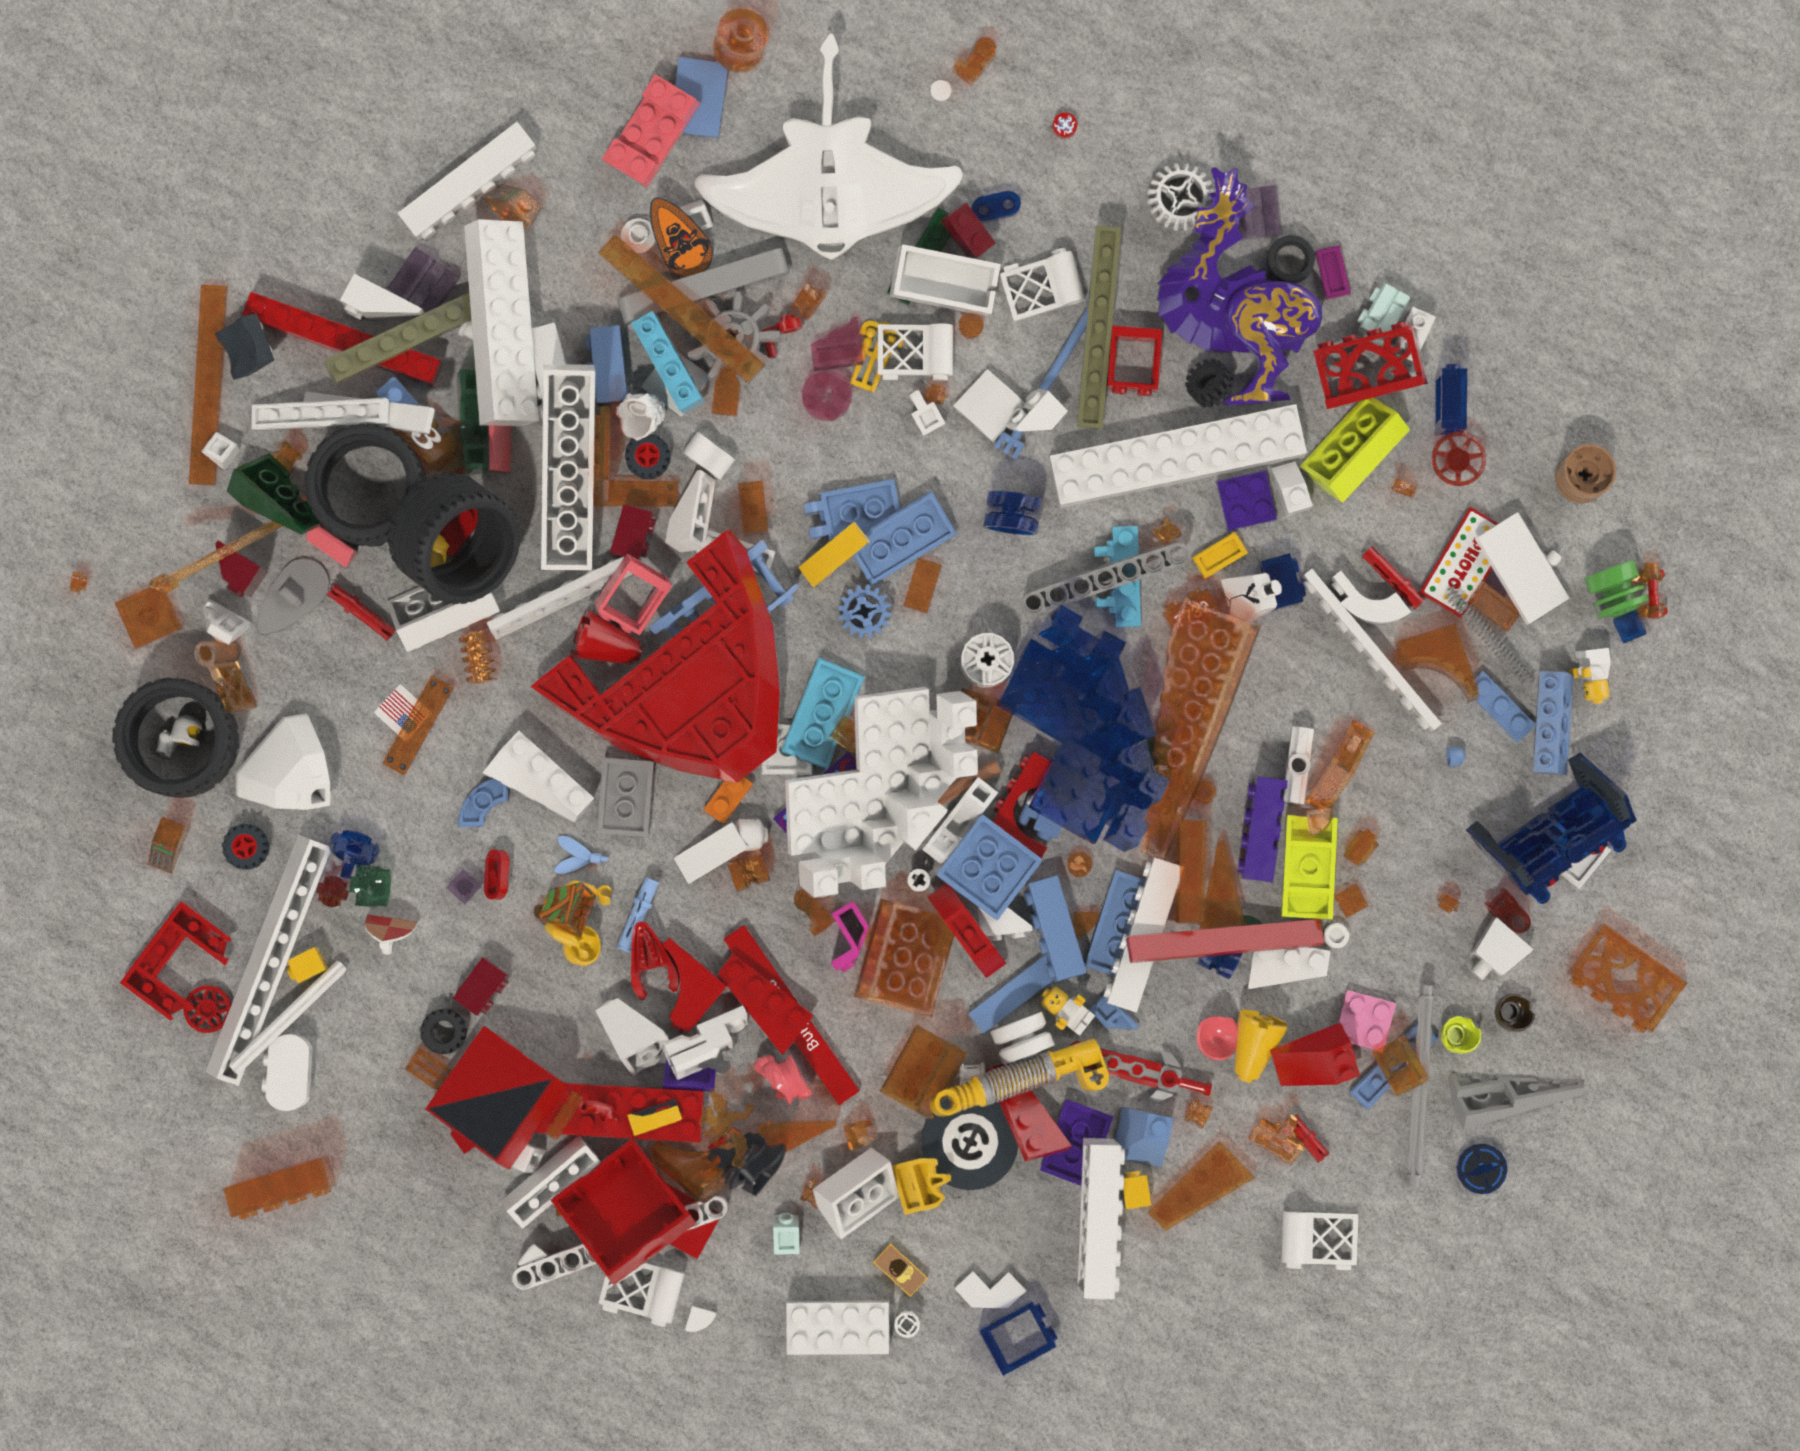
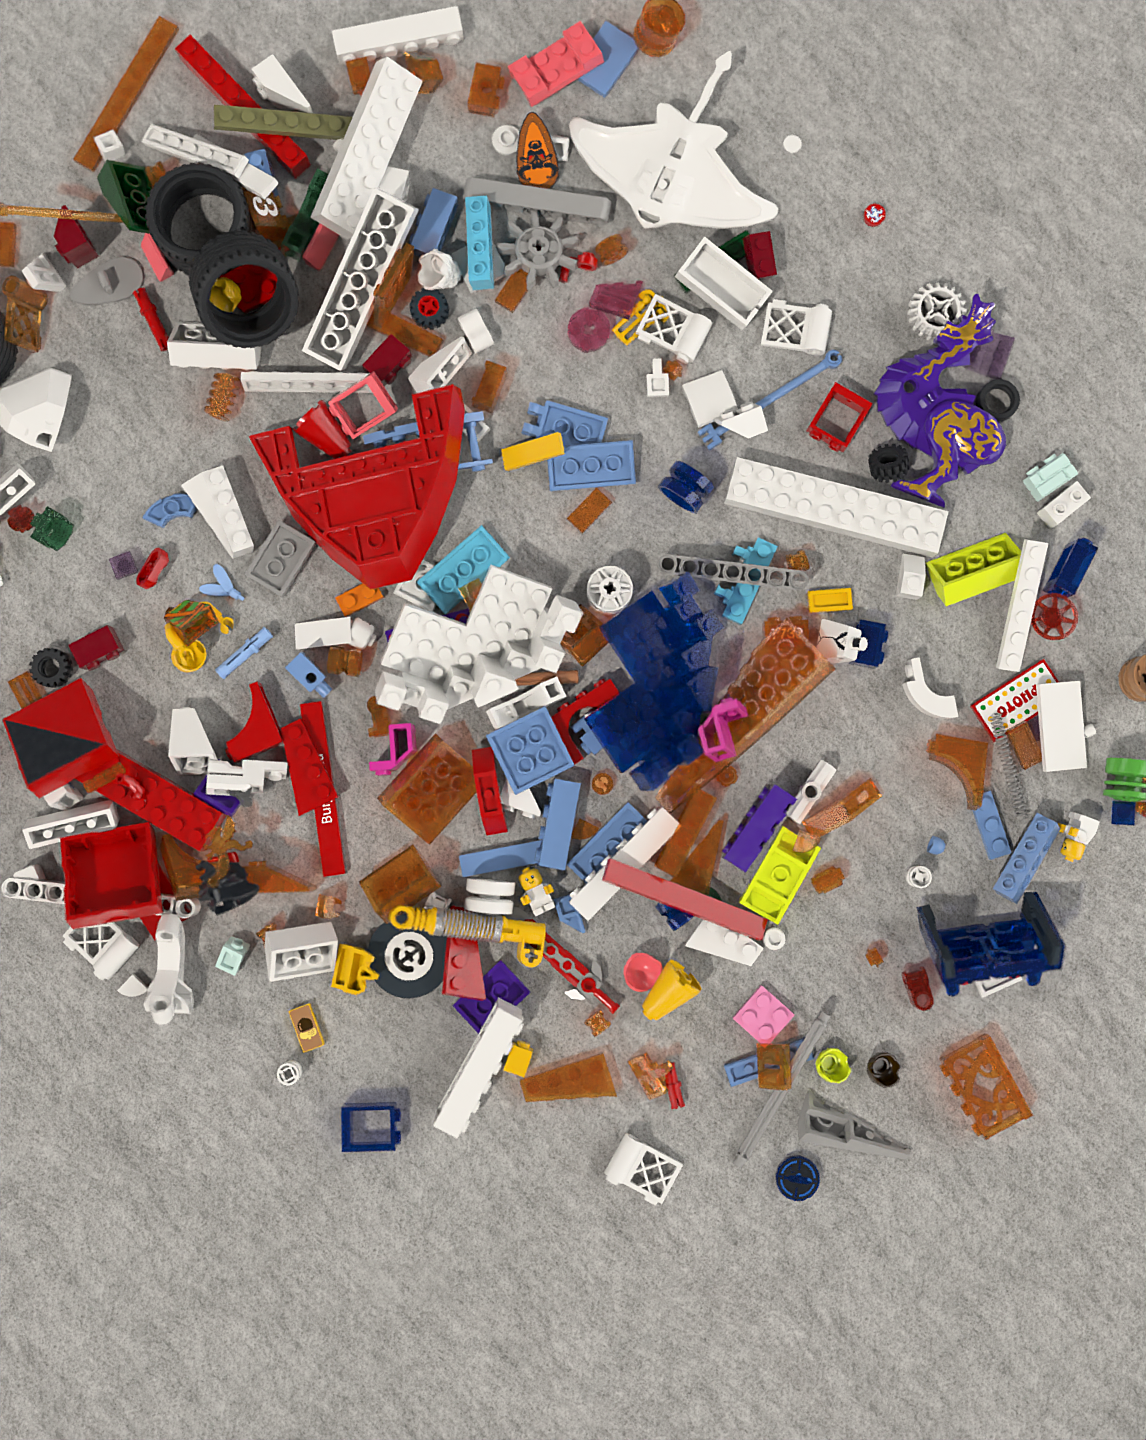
camera: 35 degrees right, 0 degrees up
(245, 346) = (166, 73): black brick -> none
(353, 849) = (51, 494): clear blue tile -> none
(388, 930) = (44, 567): shield -> none
(396, 708) = (146, 412): sticker -> none
(418, 725) = (151, 426): clear orange tile -> none
(423, 281) = (327, 94): clear purple slope -> none
(449, 245) = (358, 74): none -> clear orange brick
(580, 182) = (485, 77): none -> clear orange brick
(649, 954) = (234, 687): red animal -> none
(654, 1117) = (173, 814): yellow sticker -> none
(681, 309) = (510, 206): clear orange tile -> none
(708, 901) = (301, 667): none -> medium blue torso
(739, 1304) = (167, 991): none -> white connector
(783, 1077) = (290, 833): coral piece -> none
(837, 1327) = (234, 1048): white brick -> none
(867, 623) = (524, 505): medium blue gear -> none
(919, 888) = (465, 732): white bush -> none
(971, 325) = (726, 331): clear orange tile -> none
(977, 62) = (830, 134): clear orange leg -> none
(979, 1295) = (358, 1079): white tile -> none
(995, 206) = (790, 249): clear blue plate -> none
(1098, 327) = (824, 378): olive plate -> none
(1144, 1136) = (546, 1019): medium blue slope -> none
(1167, 740) = (727, 711): none -> dark pink piece
(1246, 500) = (871, 568): dark purple plate -> none
(1316, 1059) = (711, 1028): red slope -> none
(1332, 272) = (1025, 427): magenta tile -> none
(1351, 900) = (799, 917): clear orange tile -> none
(1377, 659) = (912, 740): white plate -> none
(1393, 577) = (956, 684): red pin -> none
(1402, 377) = (1042, 532): red fence -> none
(1403, 487) = (998, 618): clear orange tile -> none
(1419, 464) = (1022, 605): none -> white plate
(1452, 797) = (921, 874): none -> white wheel
(1498, 950) = (895, 1013): white torso -> none

